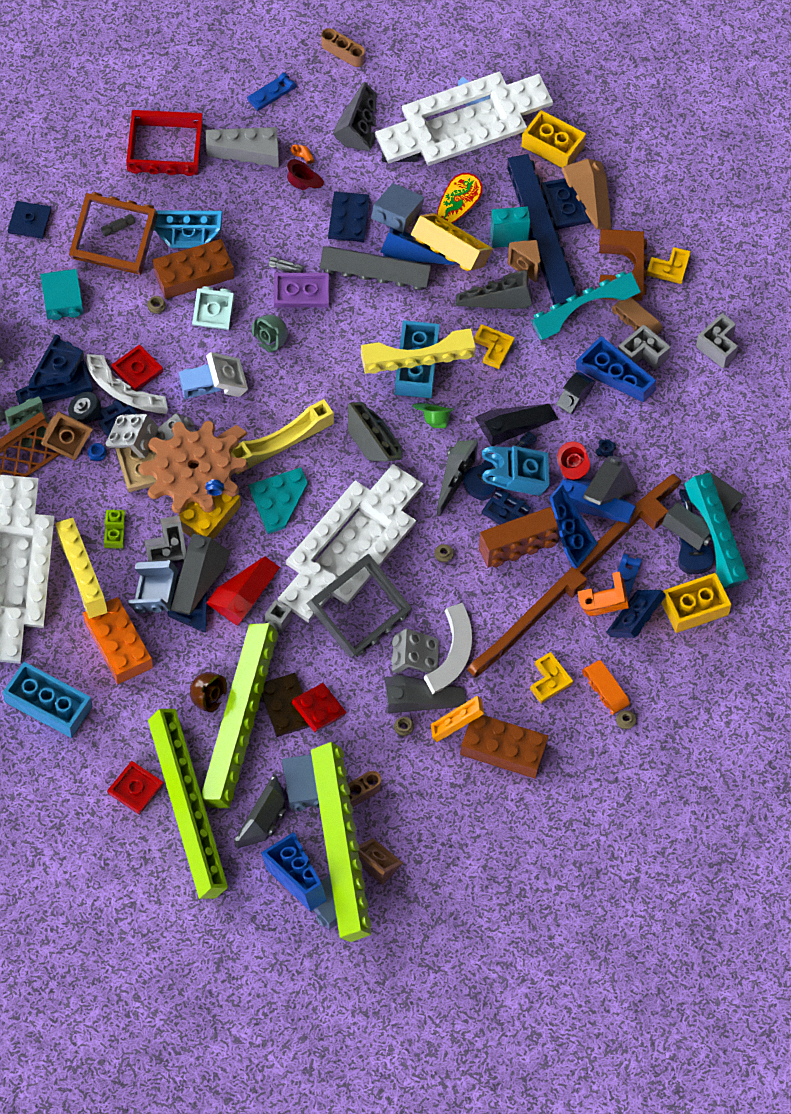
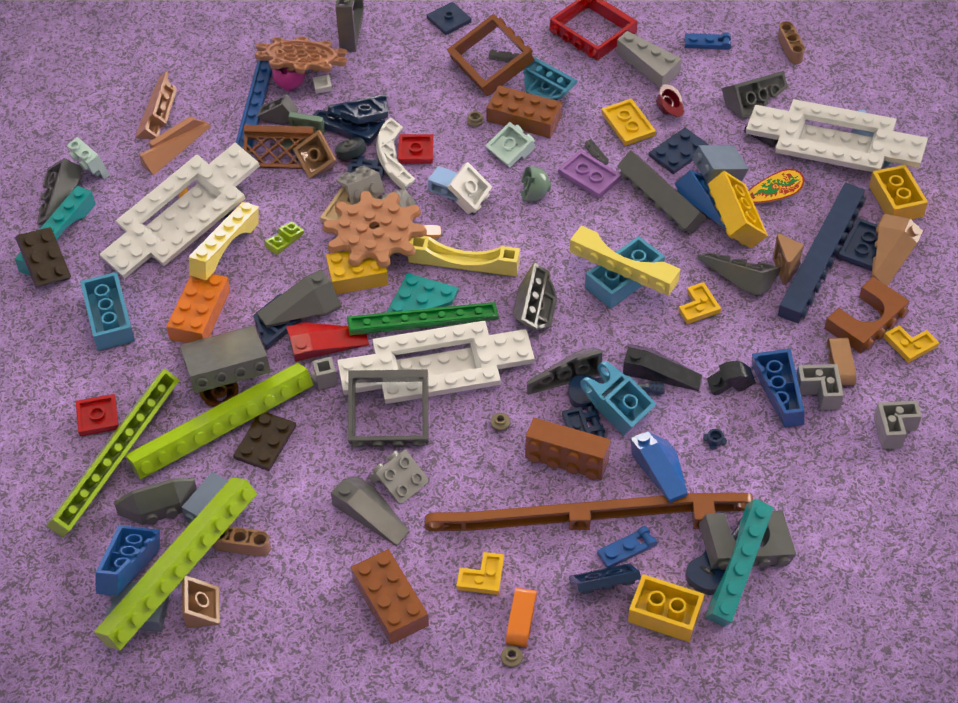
camera: 45 degrees right, 10 degrees down
(61, 294) = (416, 72): teal brick -> none
(97, 452) = (328, 182): blue plate -> none
(154, 586) = (262, 293): sand blue panel -> none
(171, 545) = (309, 261): light grey brick -> none
(193, 663) = (225, 358): none -> dark grey panel
(214, 487) = (367, 247): blue plate -> none
(284, 218) = (628, 122): none -> yellow plate
(301, 514) = (422, 318): none -> green tile
(302, 151) = (688, 89): orange arm -> none
(318, 707) = (283, 458): red plate -> none
(403, 720) = (331, 517): dark tan plate -> none
(434, 414) = (598, 319): bright green piece -> none
(457, 719) = (371, 544): light orange plate -> none
(458, 652) = (429, 501): white tile -> none
(509, 226) = (795, 224): teal brick -> none
(551, 322) = (760, 315): teal arch -> none
(573, 460) = (674, 425): red piece -> none
(574, 532) = (607, 469): blue wedge -> none
(606, 600) = (590, 549): orange piece -> none
(611, 482) = (686, 458): dark grey wedge -> none

